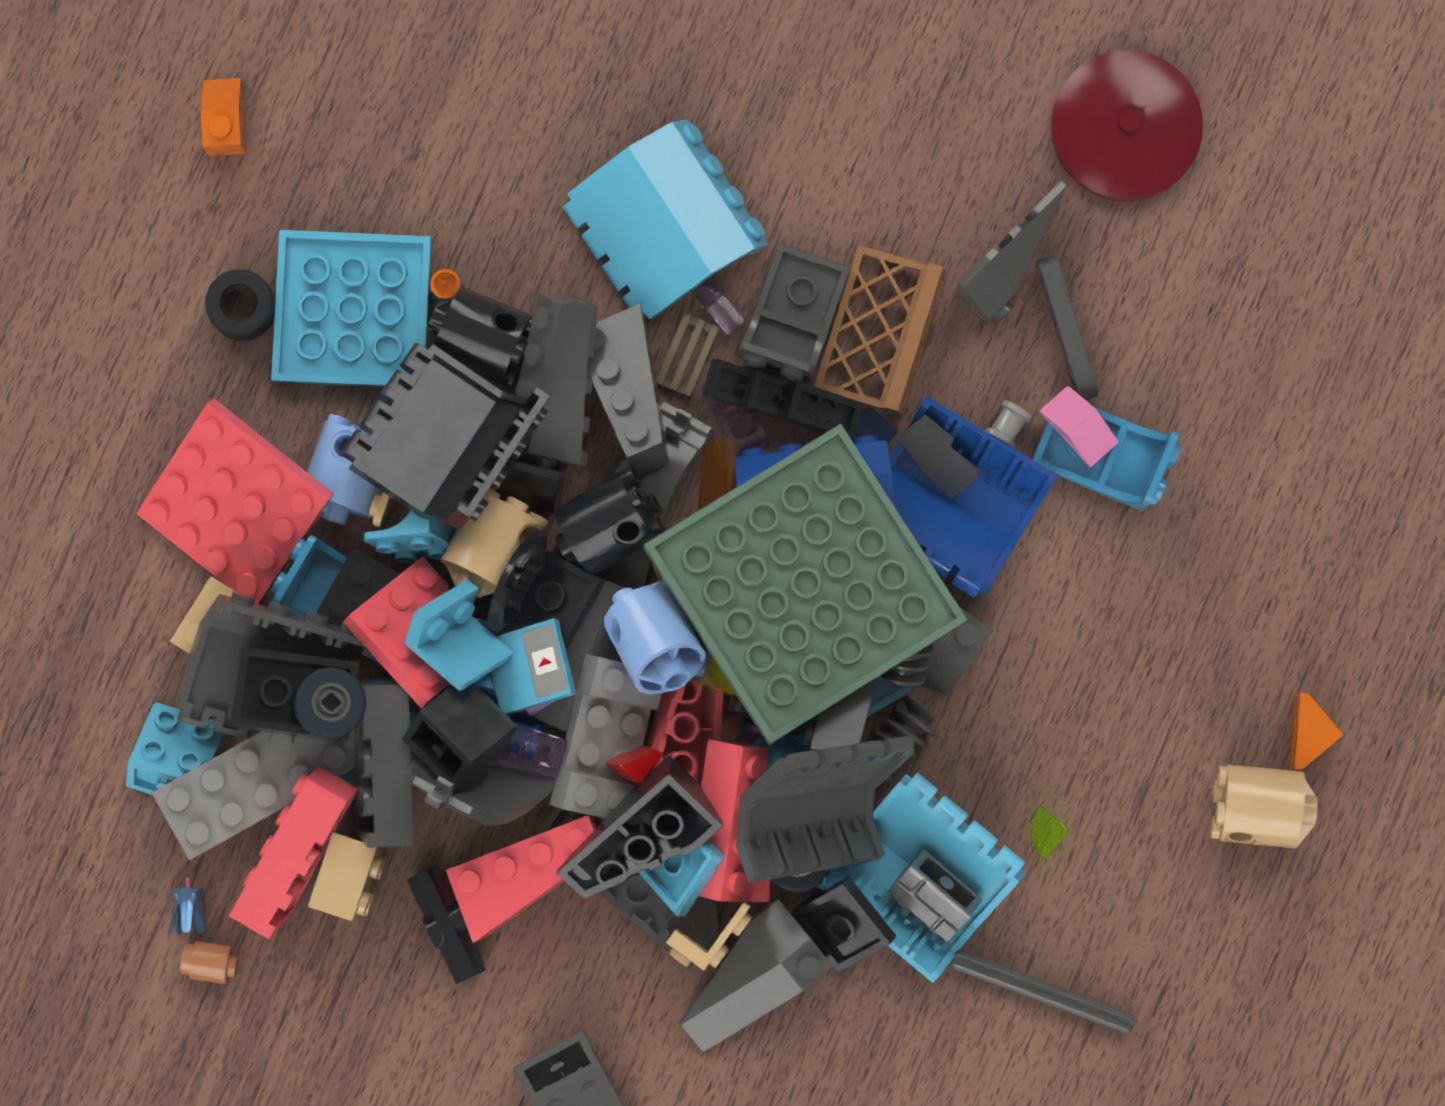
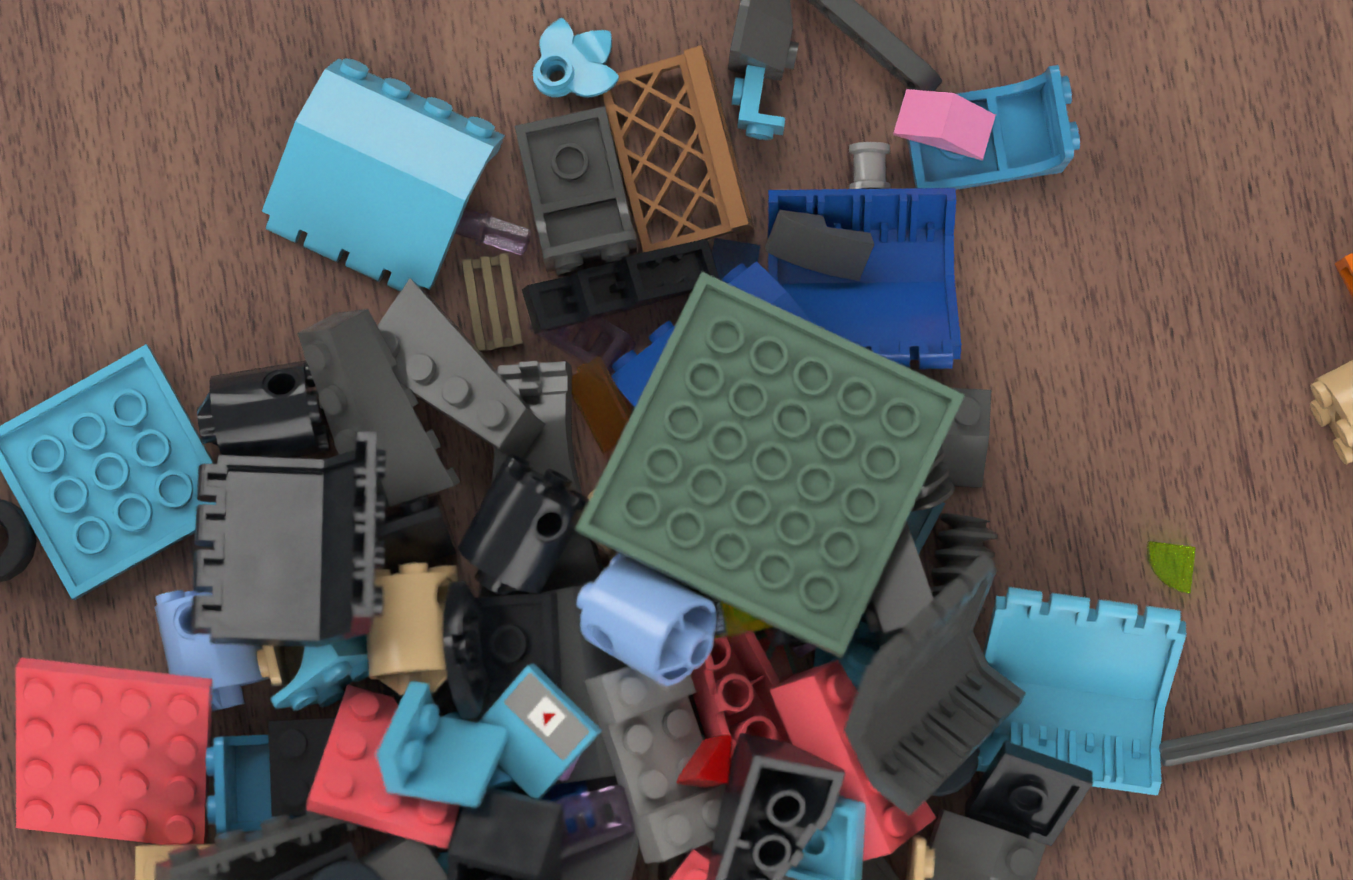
camera: 35 degrees left, 0 degrees up
(444, 285) = (192, 386): orange piece -> none
(854, 222) = (579, 57): none -> medium azure plate
(935, 895) = (1103, 703): flat silver brick -> none
(954, 322) = (747, 96): none -> medium azure bracket

